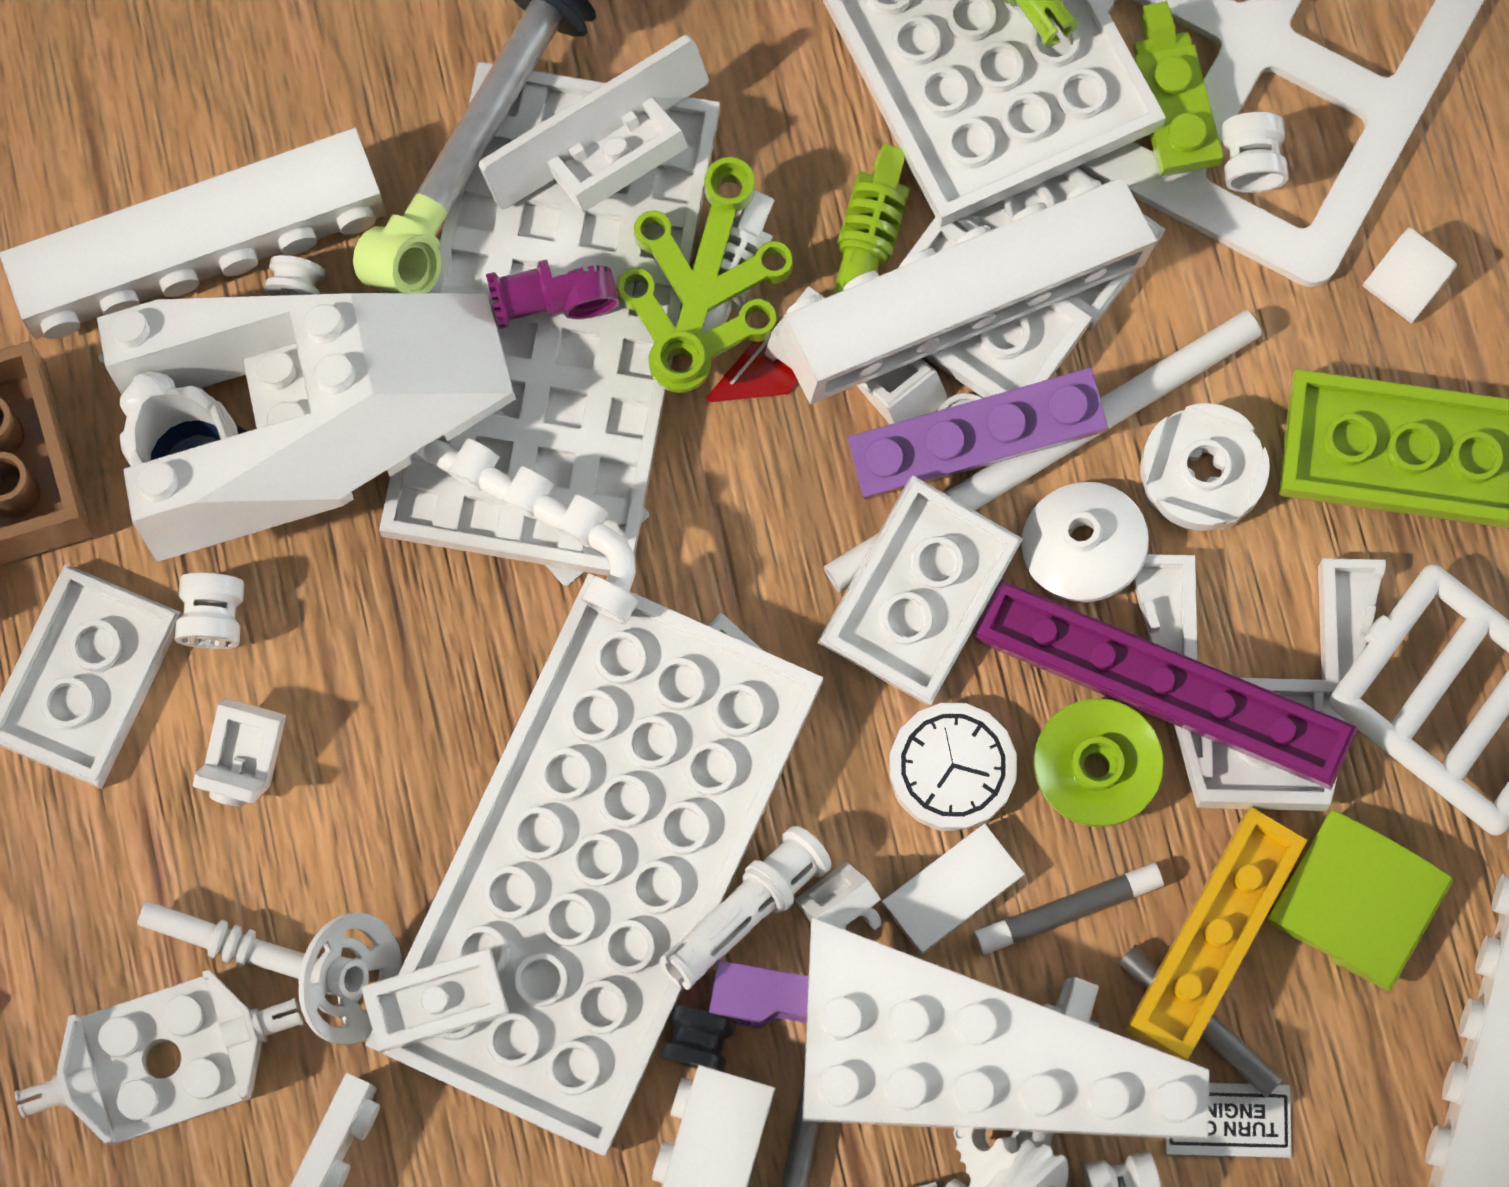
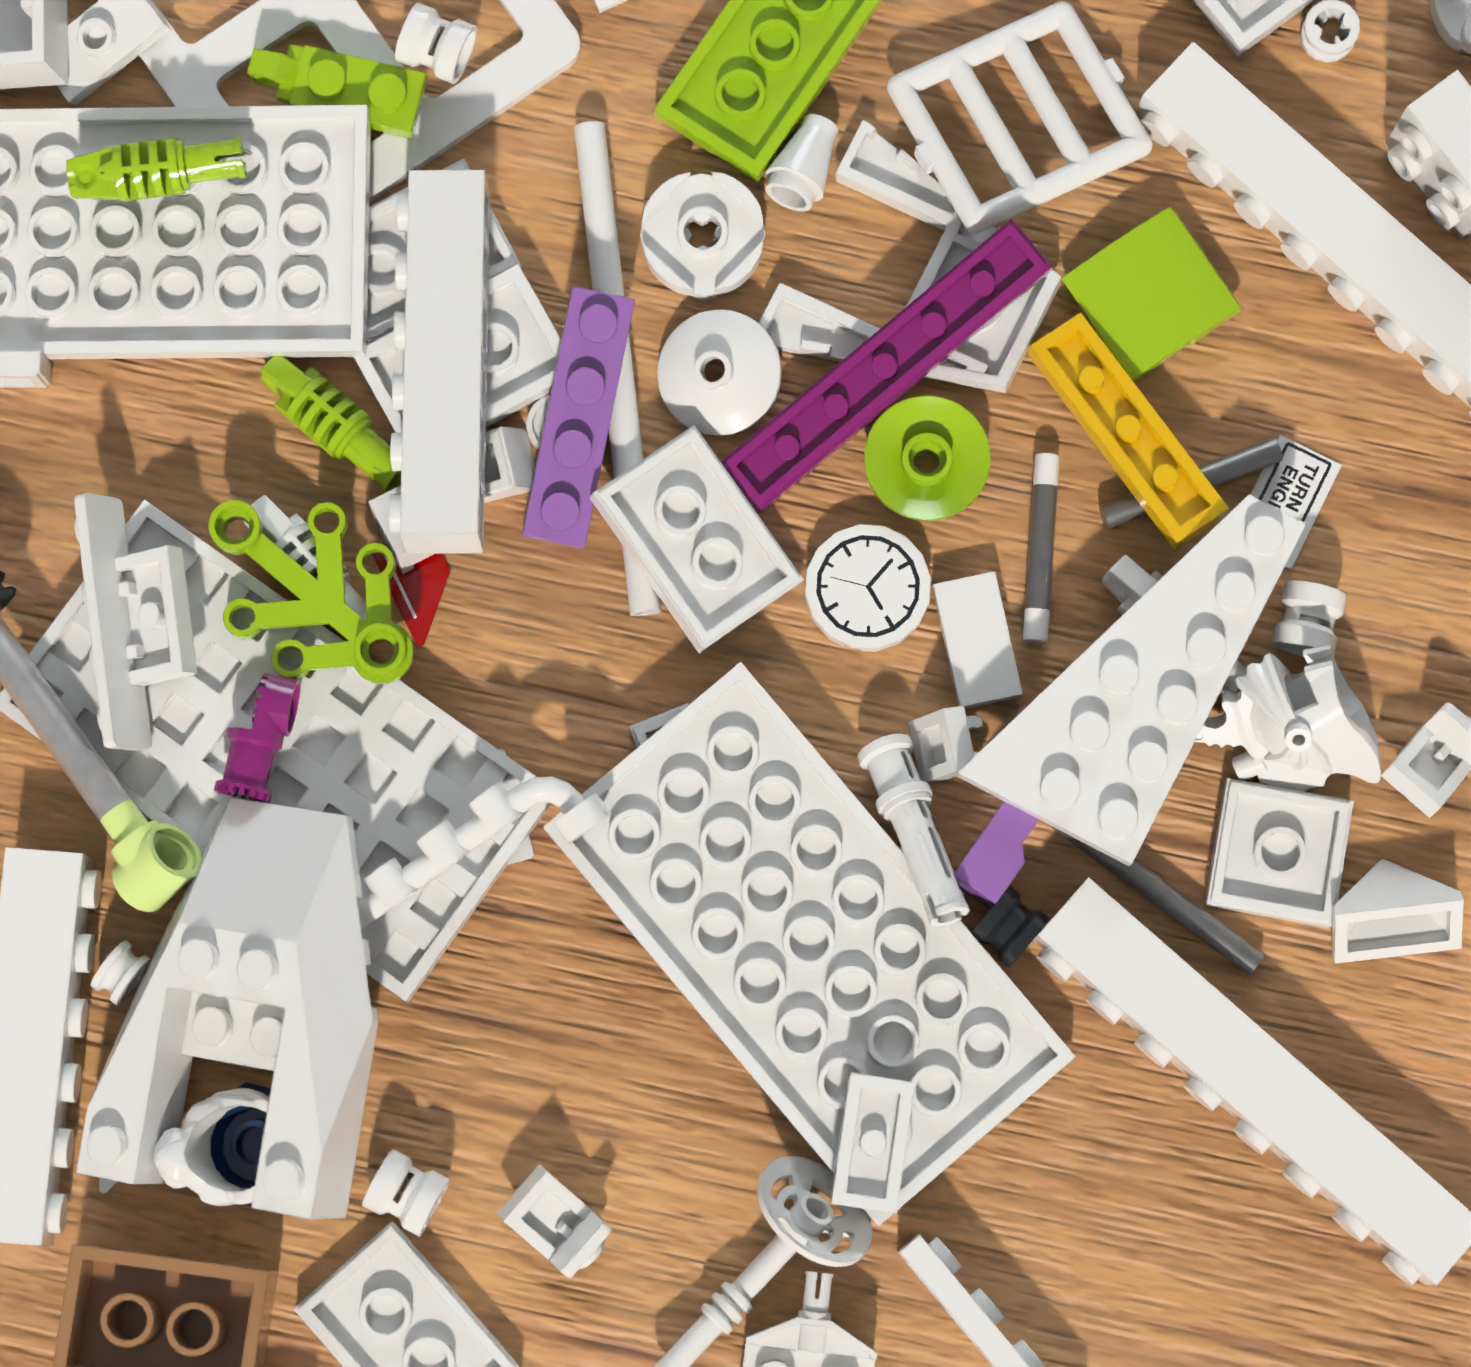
camera: 65 degrees left, 5 degrees up
(1314, 526) = (802, 167): none -> white cone

